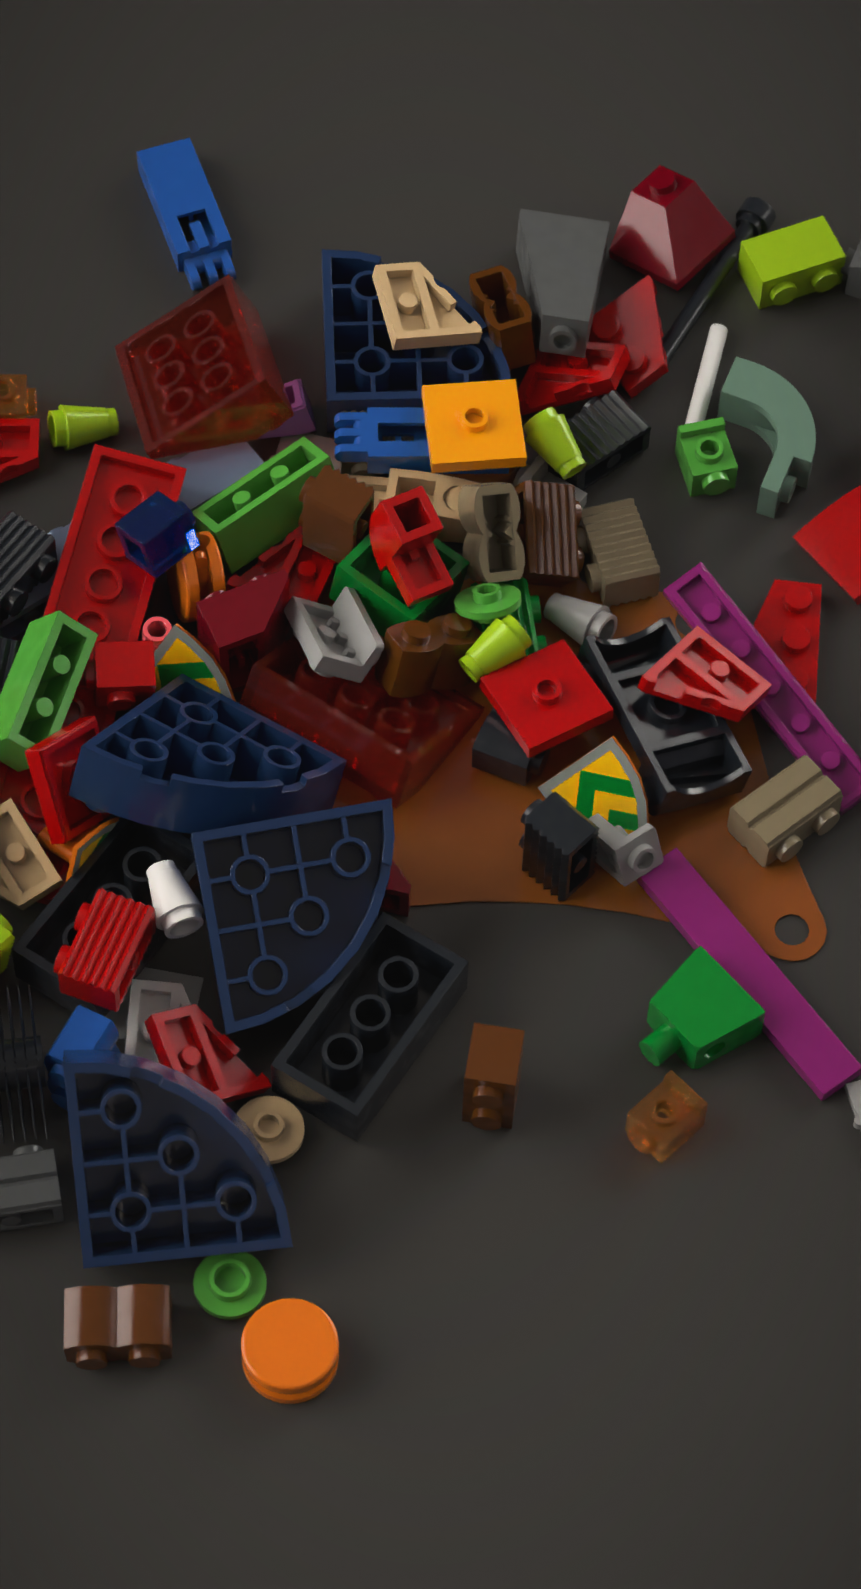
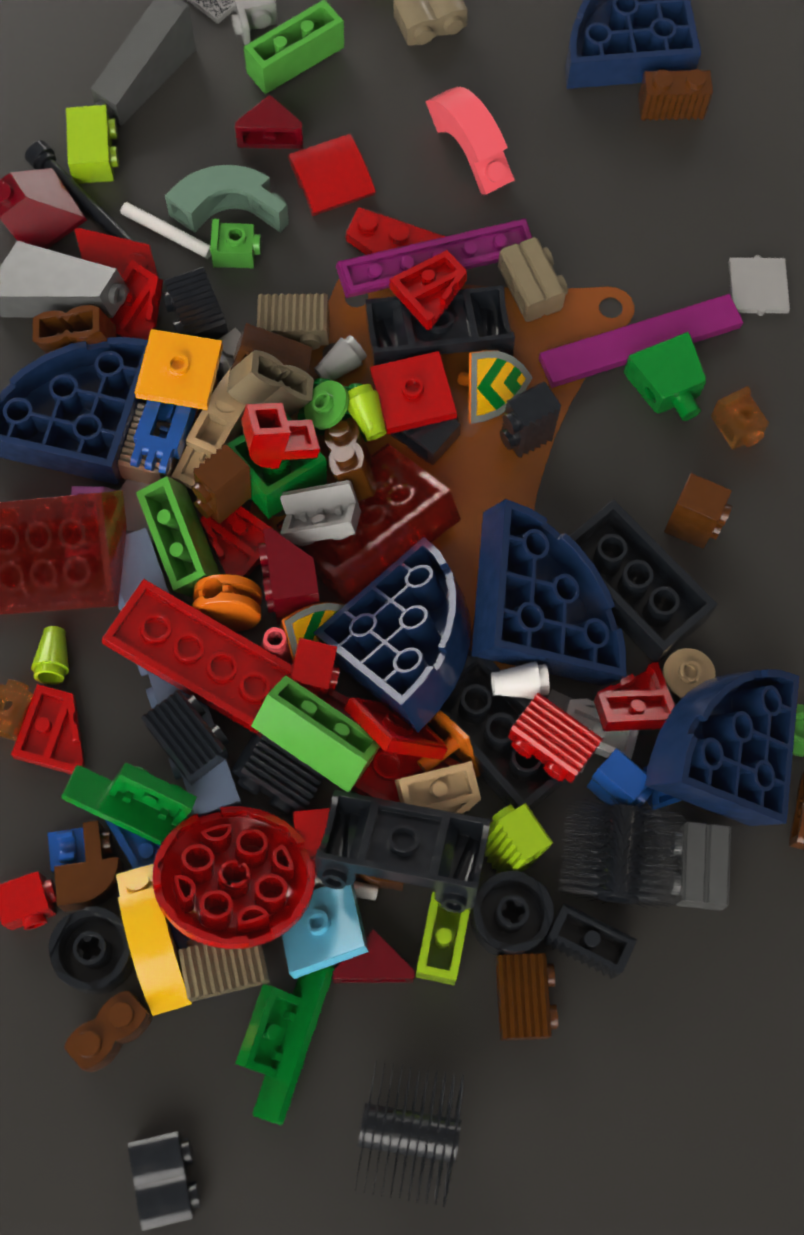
camera: 75 degrees left, 10 degrees up
(157, 533) = (205, 610): clear blue brick -> none
(419, 310) = (58, 378): tan wing -> none
(554, 442) = (204, 323): lime cone -> none
(627, 855) = (549, 373): light grey bracket -> none

